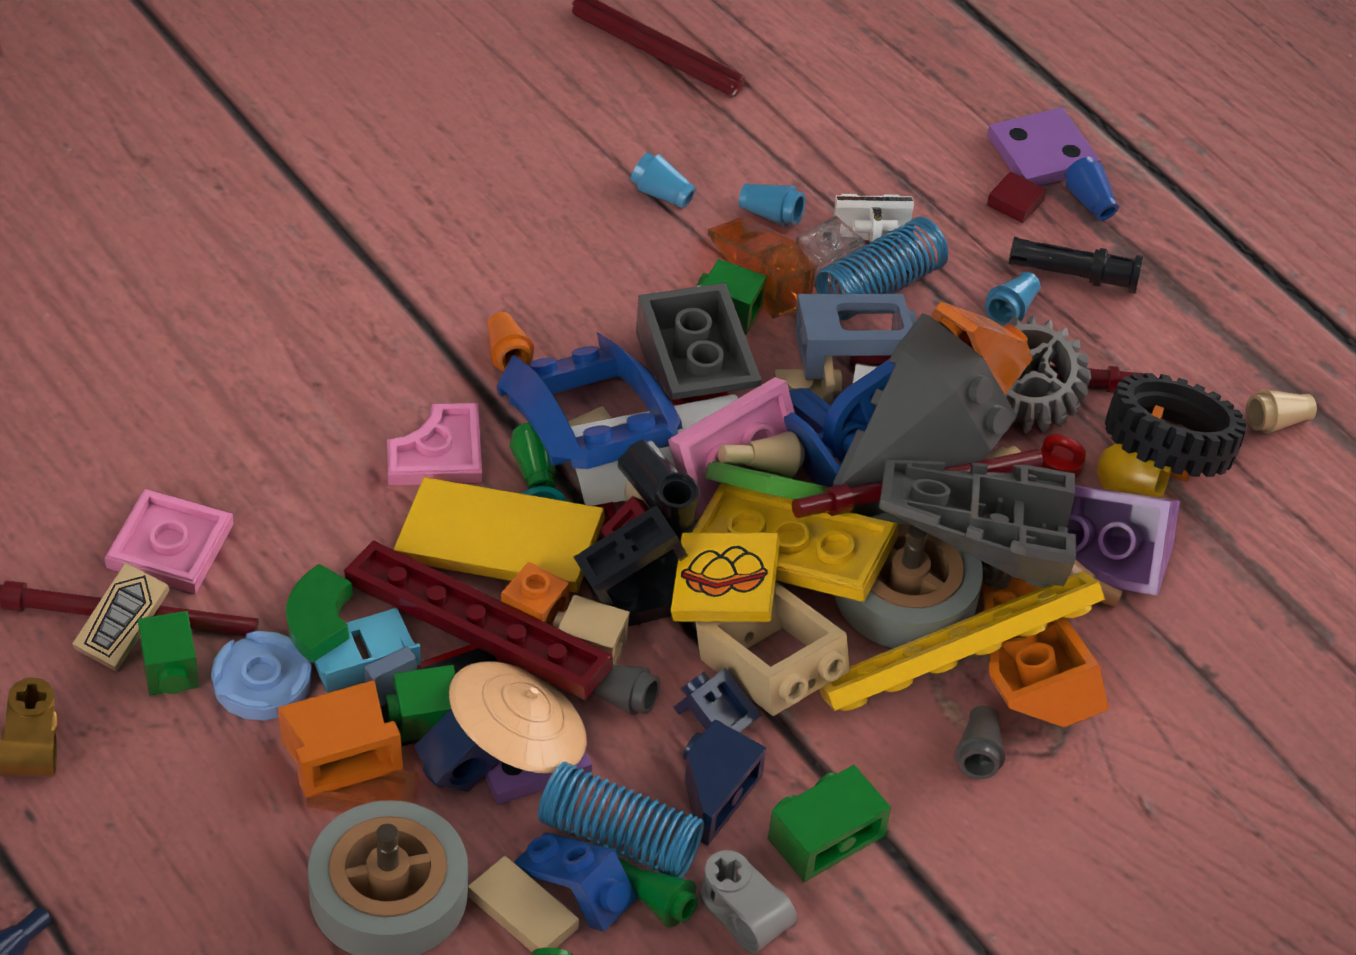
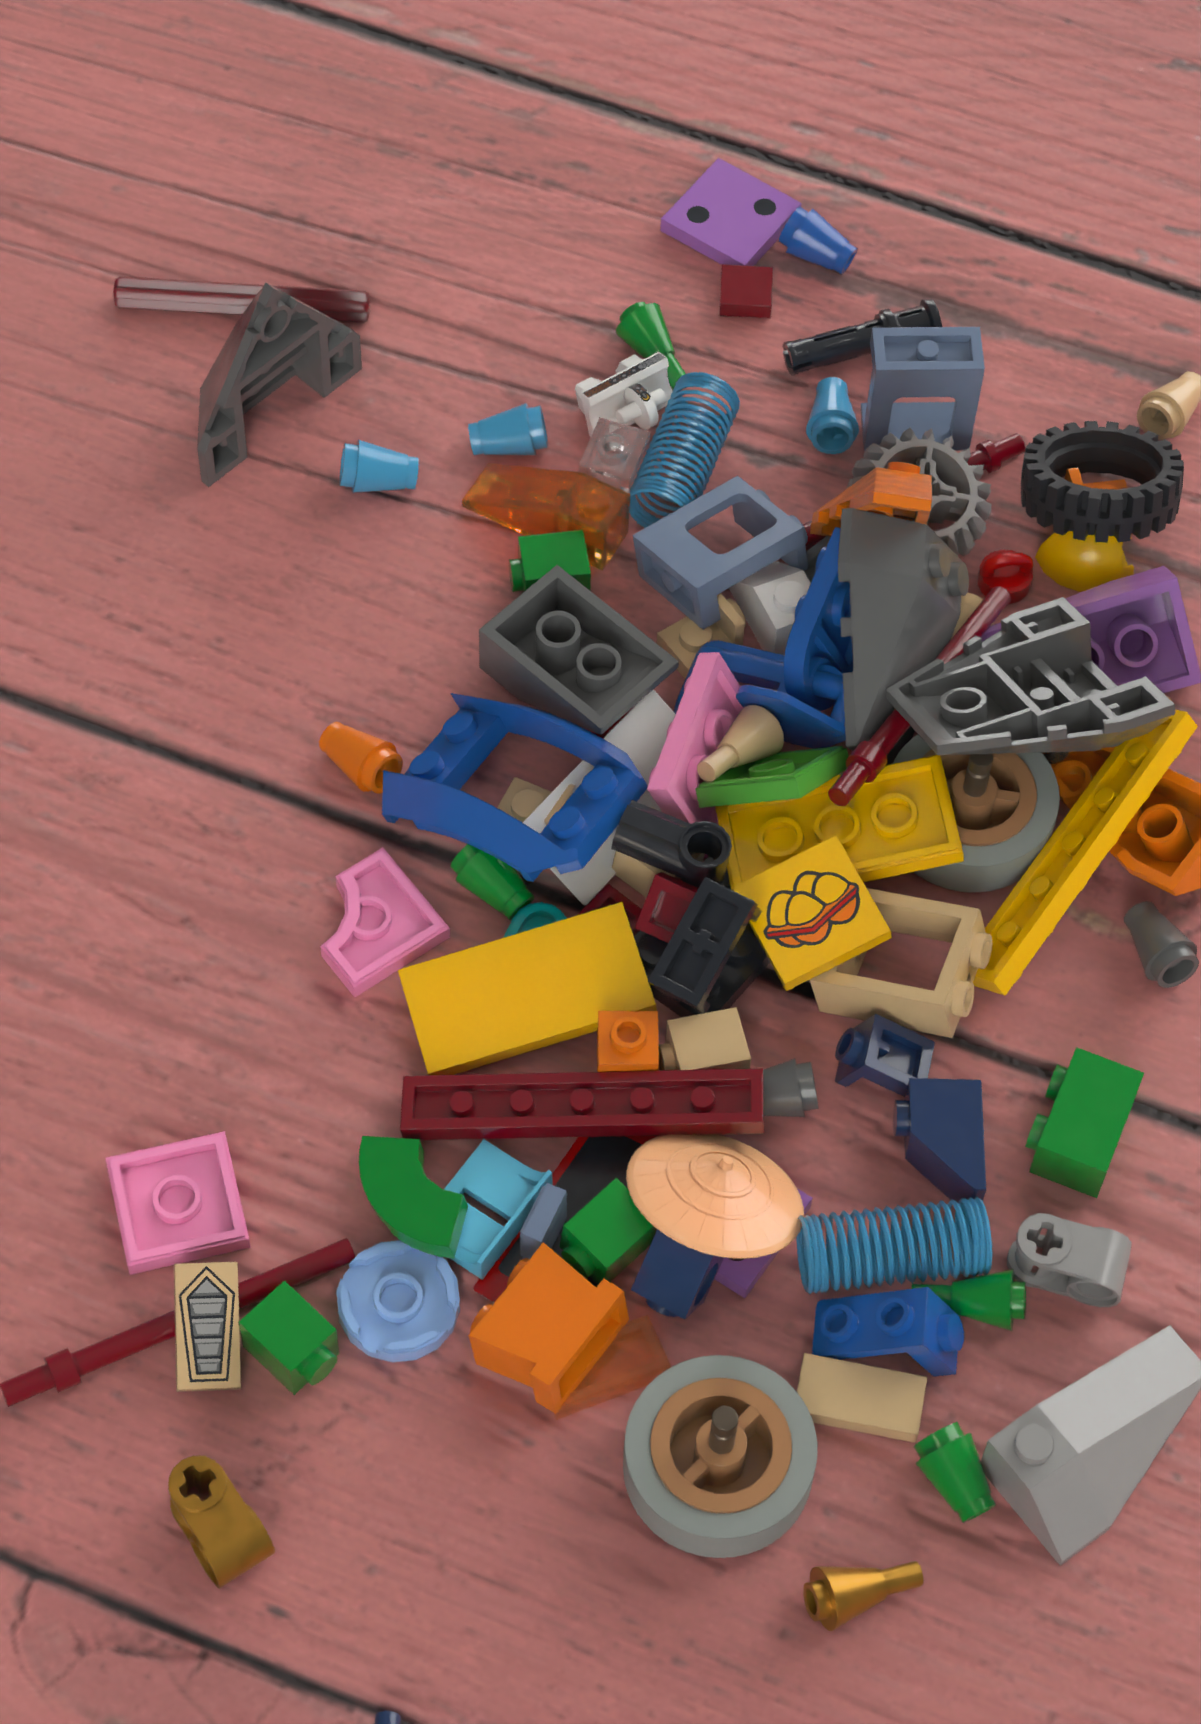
camera: 30 degrees left, 10 degrees up
(627, 72) = (265, 350): none -> dark grey wedge
(921, 183) = (646, 333): none -> green cone
(1087, 279) = (924, 365): none -> sand blue window

